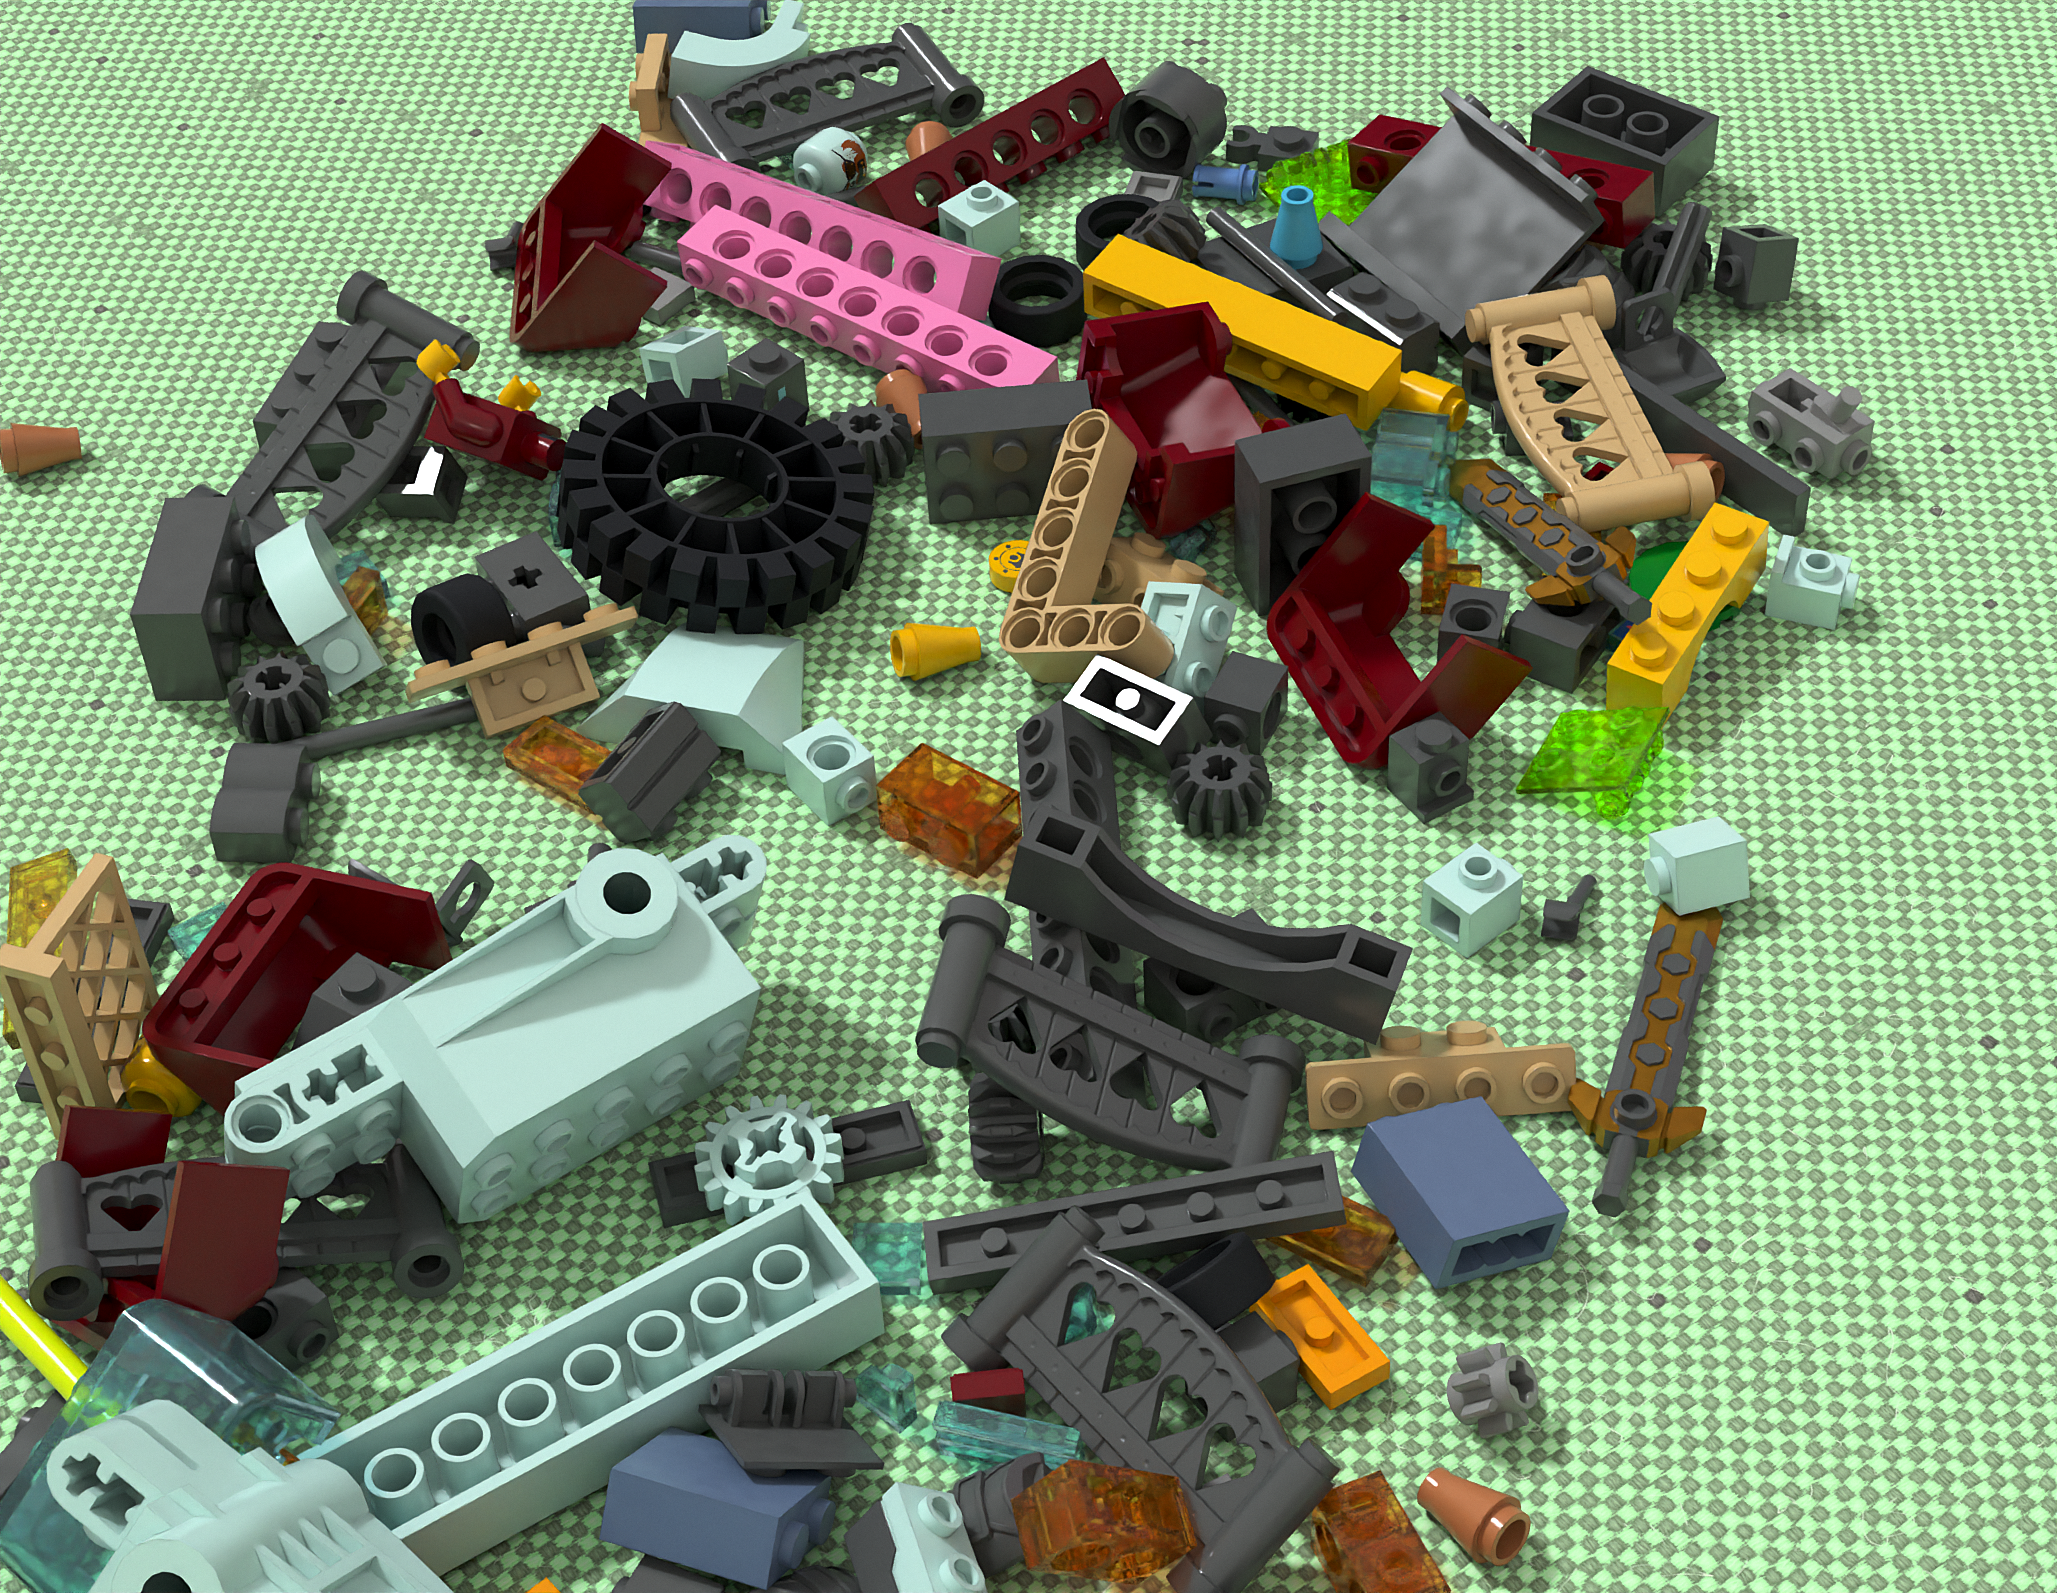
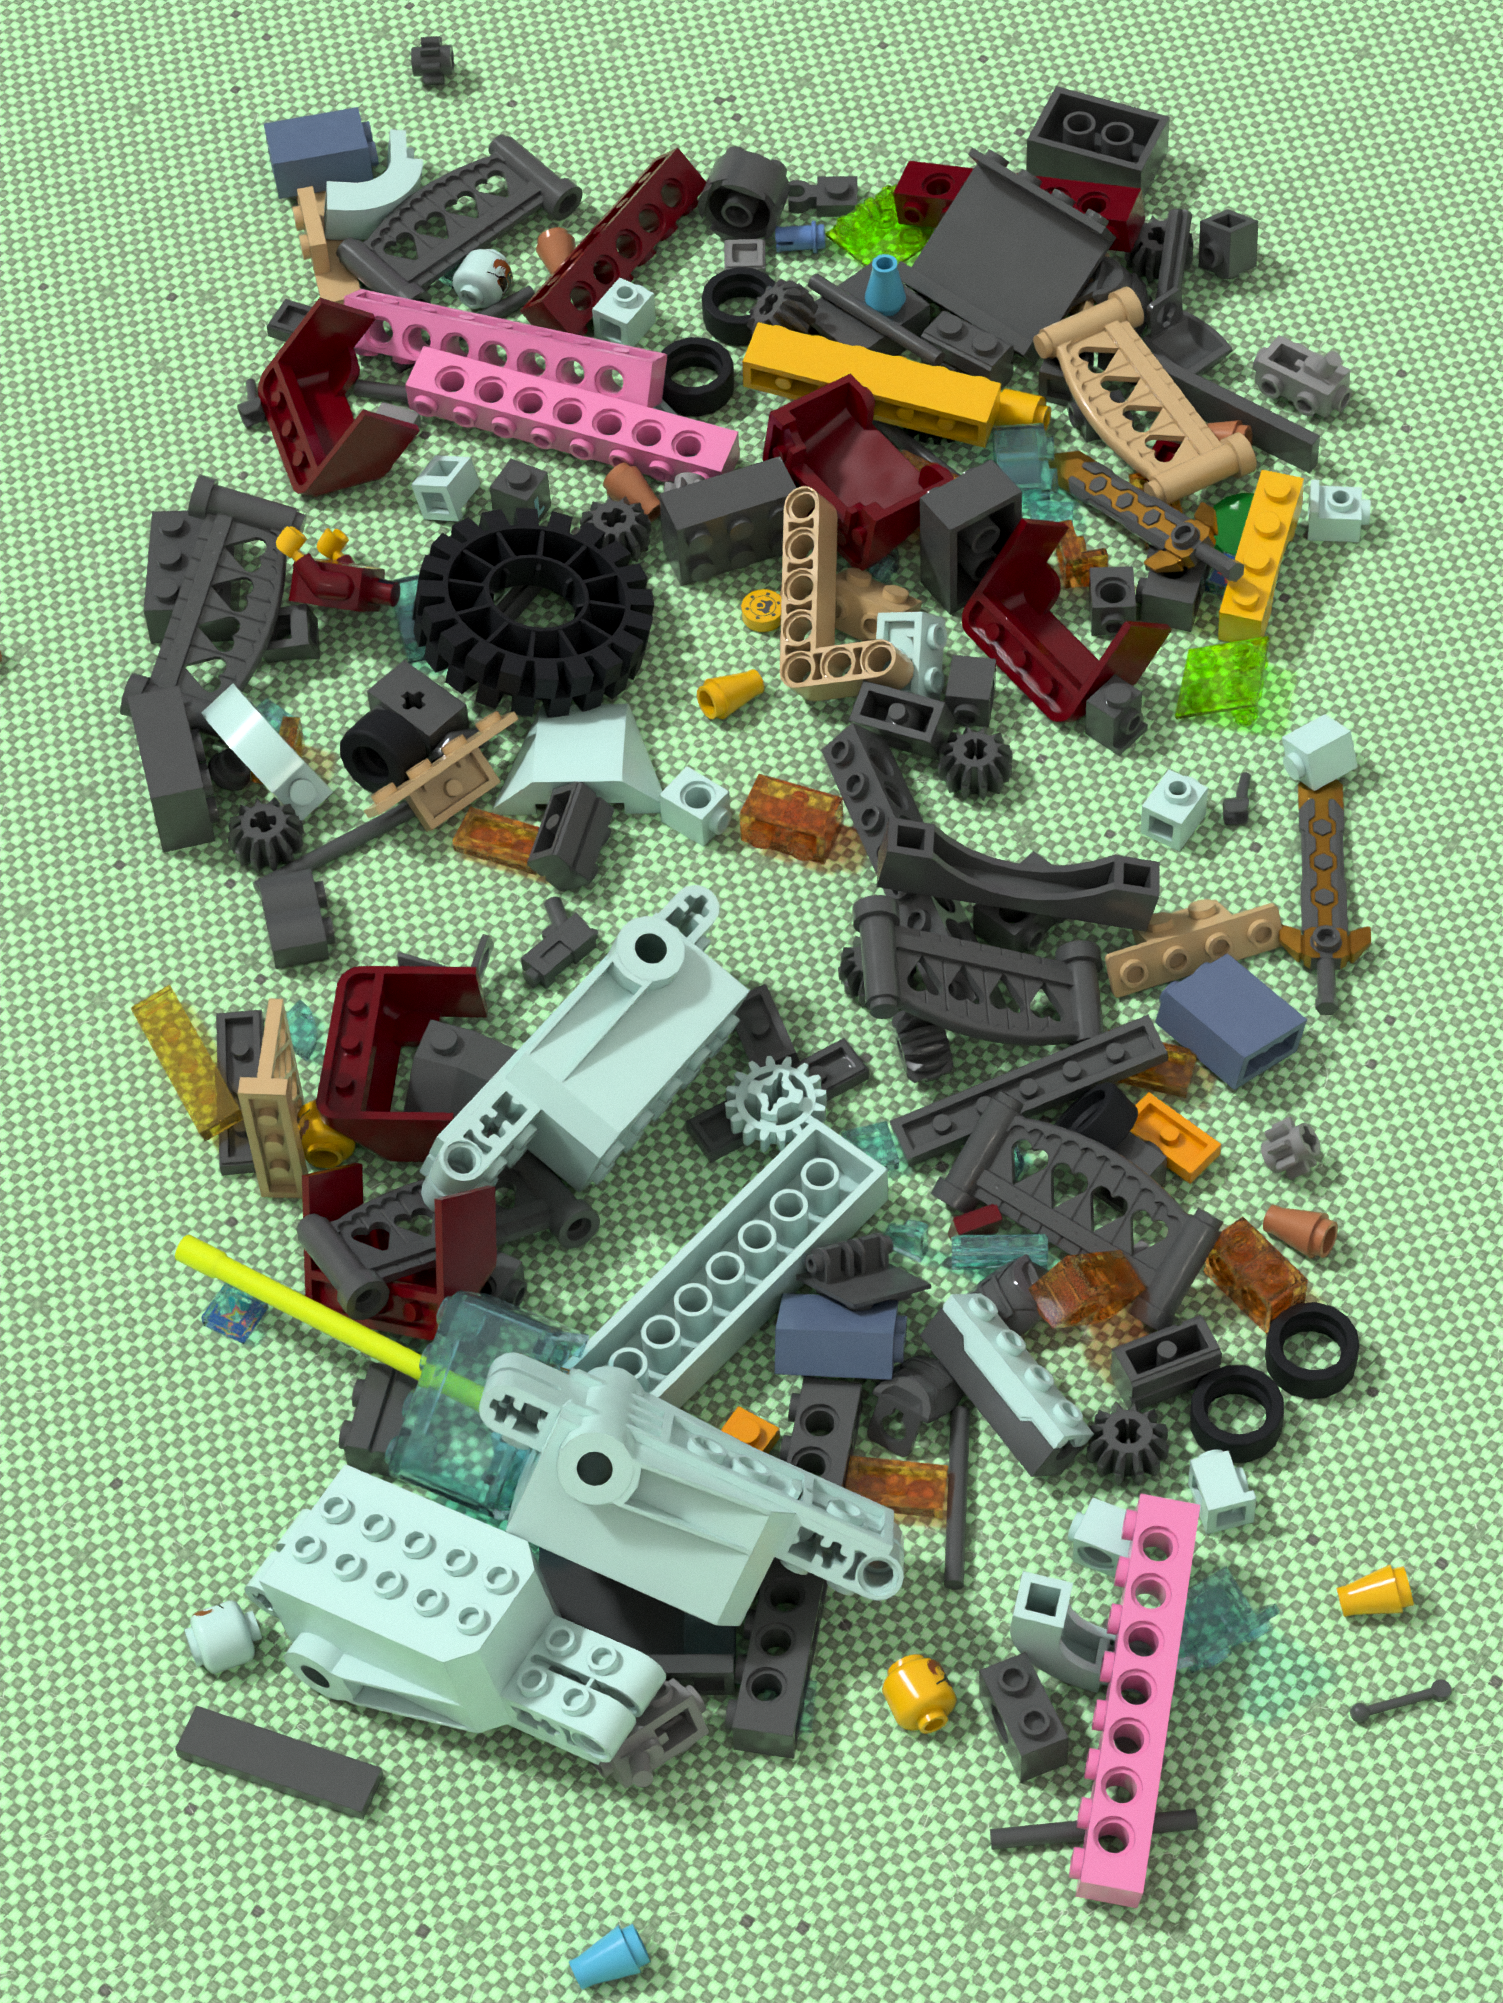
camera: 15 degrees left, 10 degrees up
(799, 1059) = (763, 1029): none -> dark grey plate

